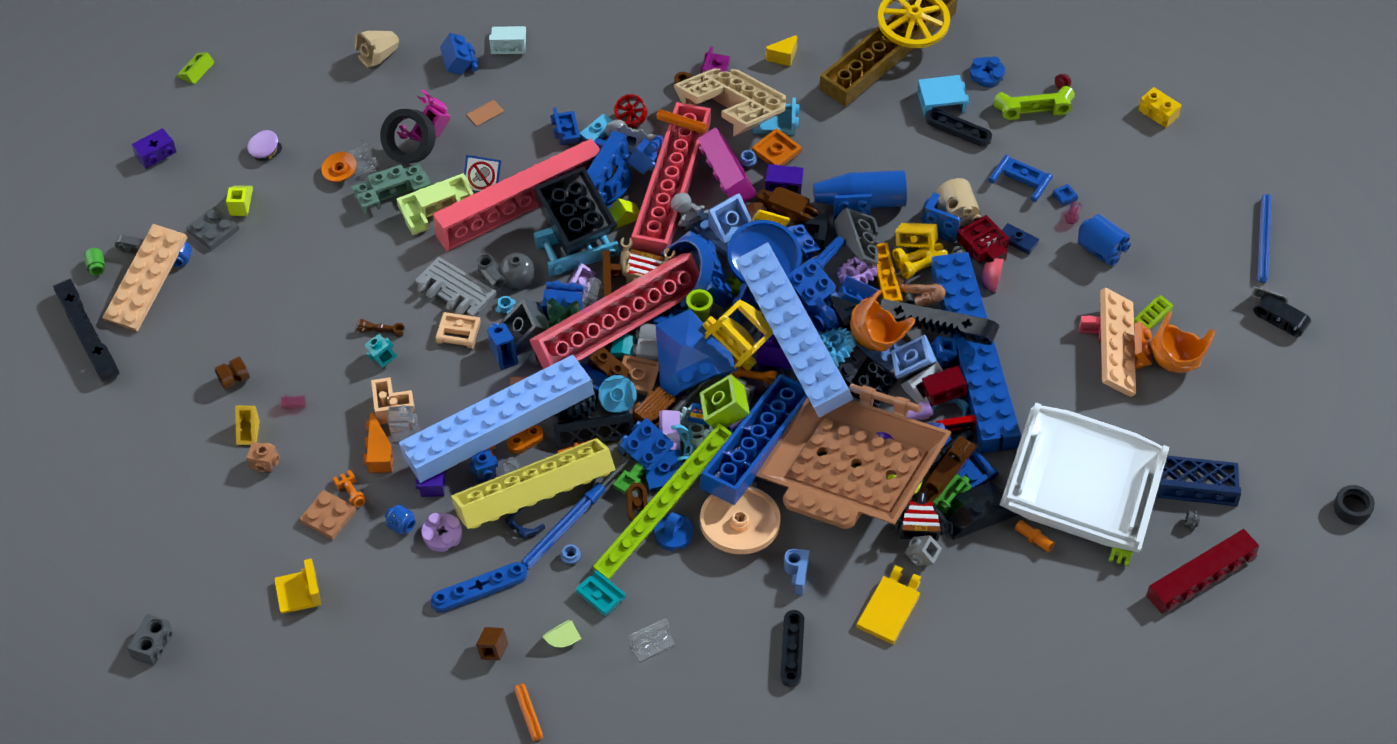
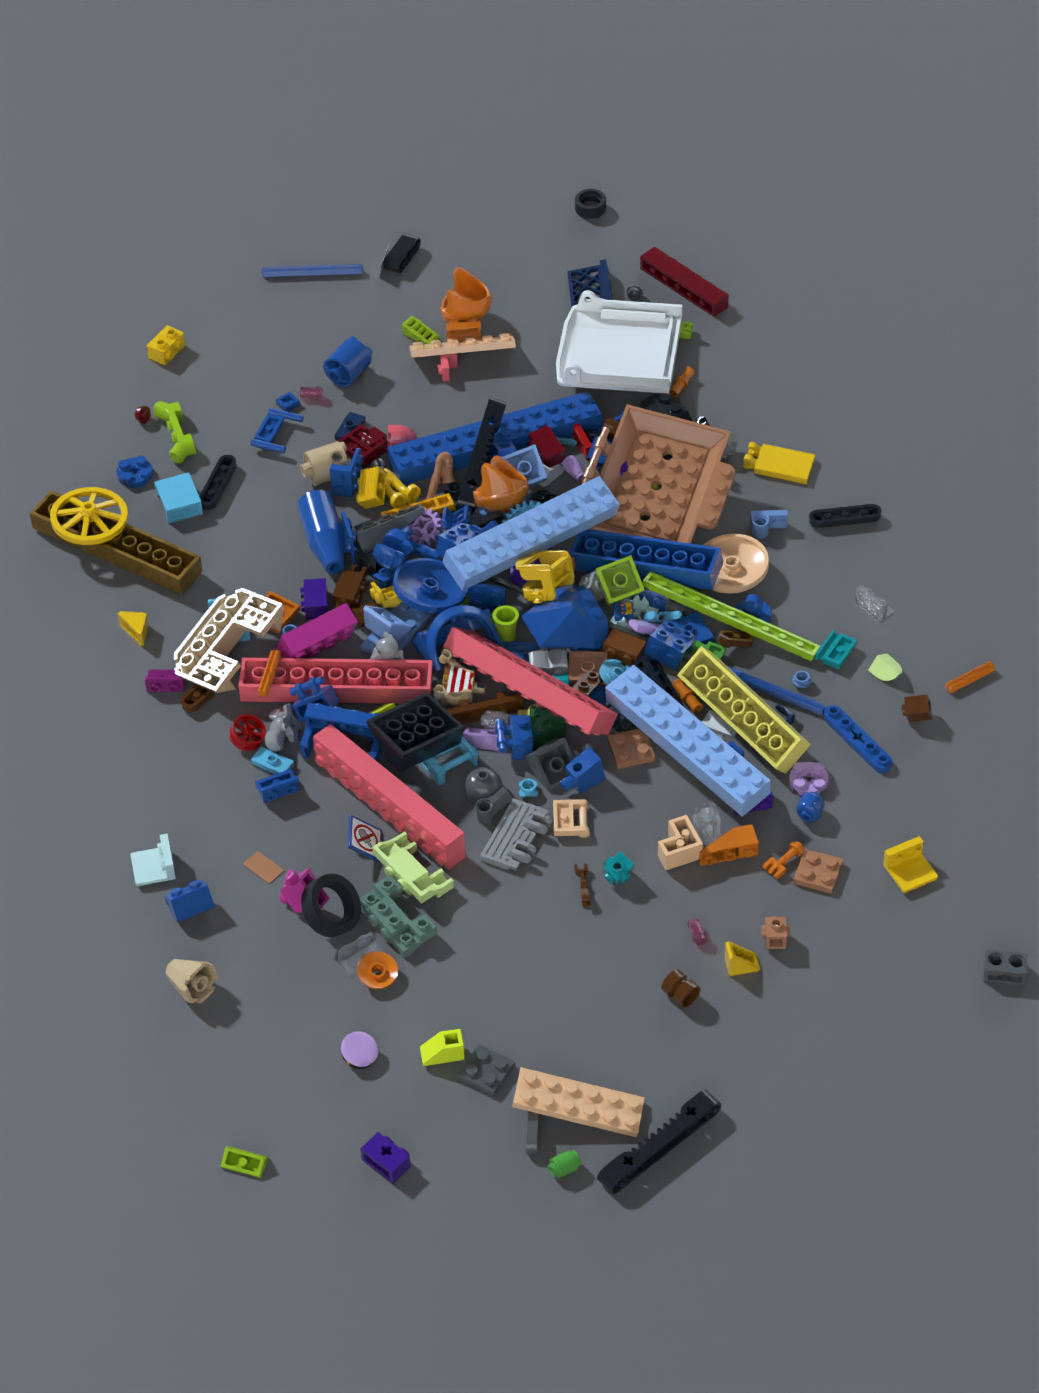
camera: 100 degrees left, 5 degrees down
(813, 231) = (394, 548): none -> blue piece

